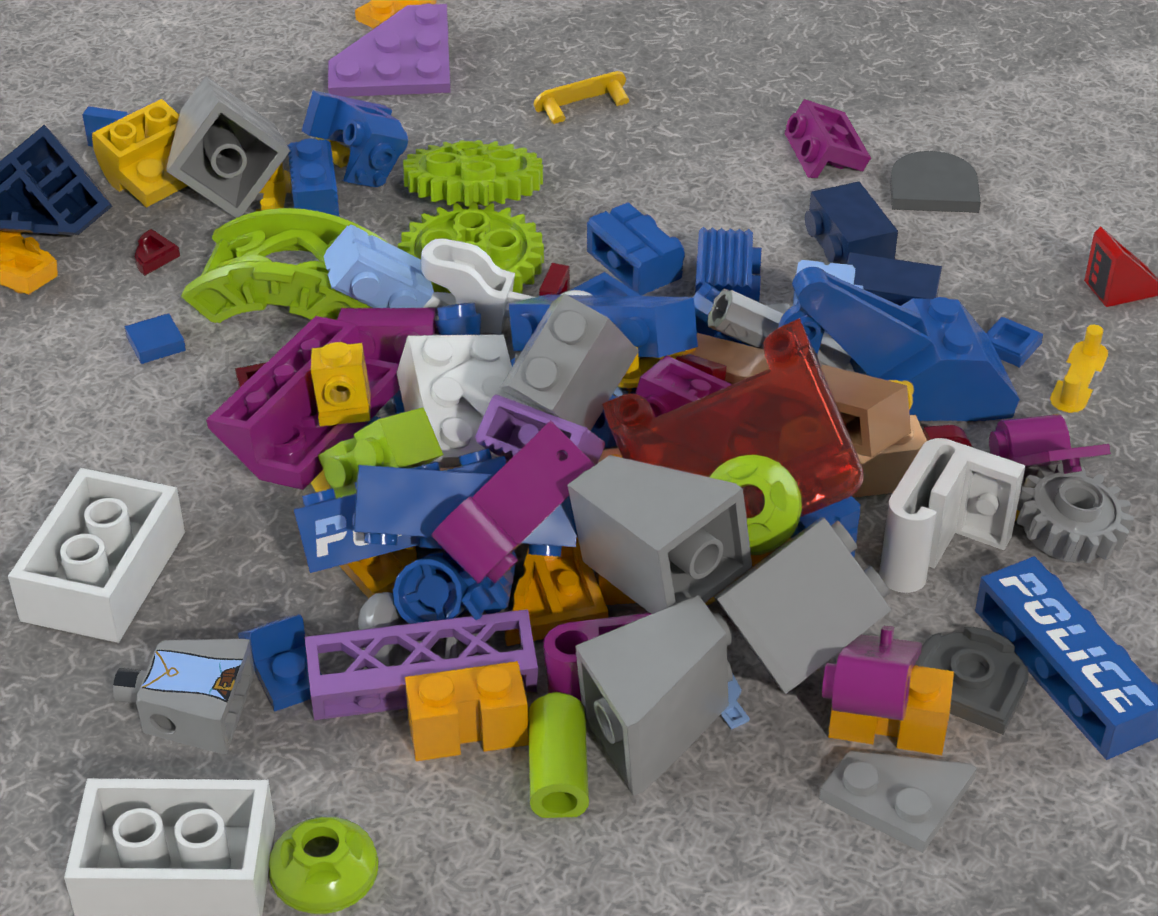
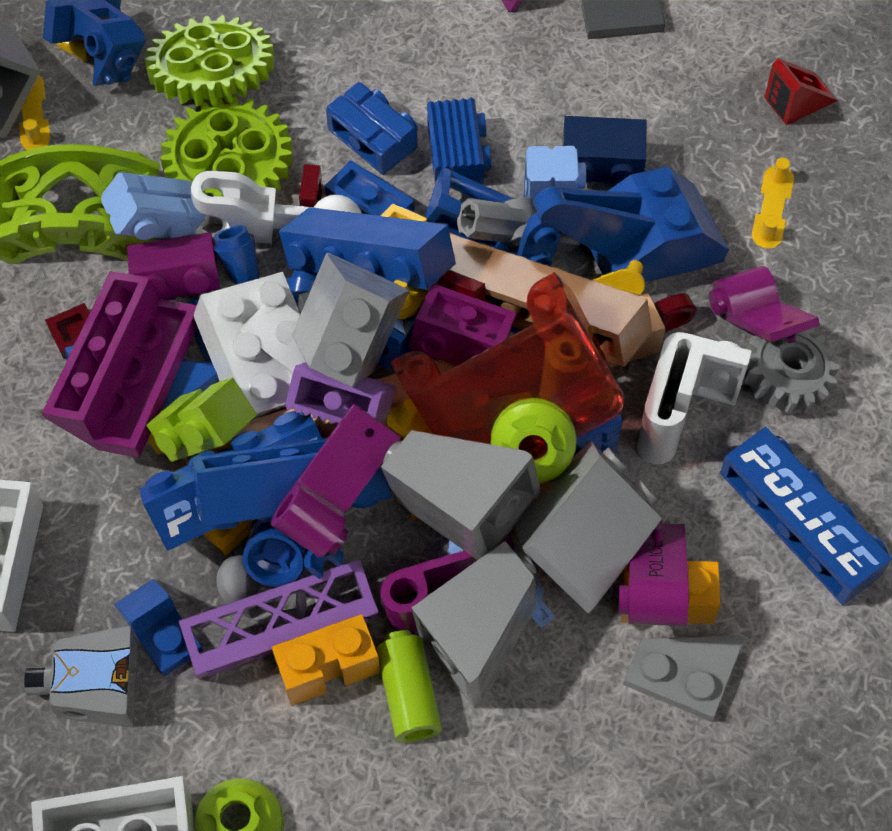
camera: 10 degrees left, 20 degrees up
(313, 176) = (67, 97): blue brick -> none
(340, 383) = (150, 350): yellow brick -> none
(556, 593) = (379, 532): light orange wing -> none
(849, 222) = (559, 78): dark blue brick -> none
(986, 677) = (734, 536): dark grey tile -> none
(1014, 341) = (713, 178): blue tile -> none

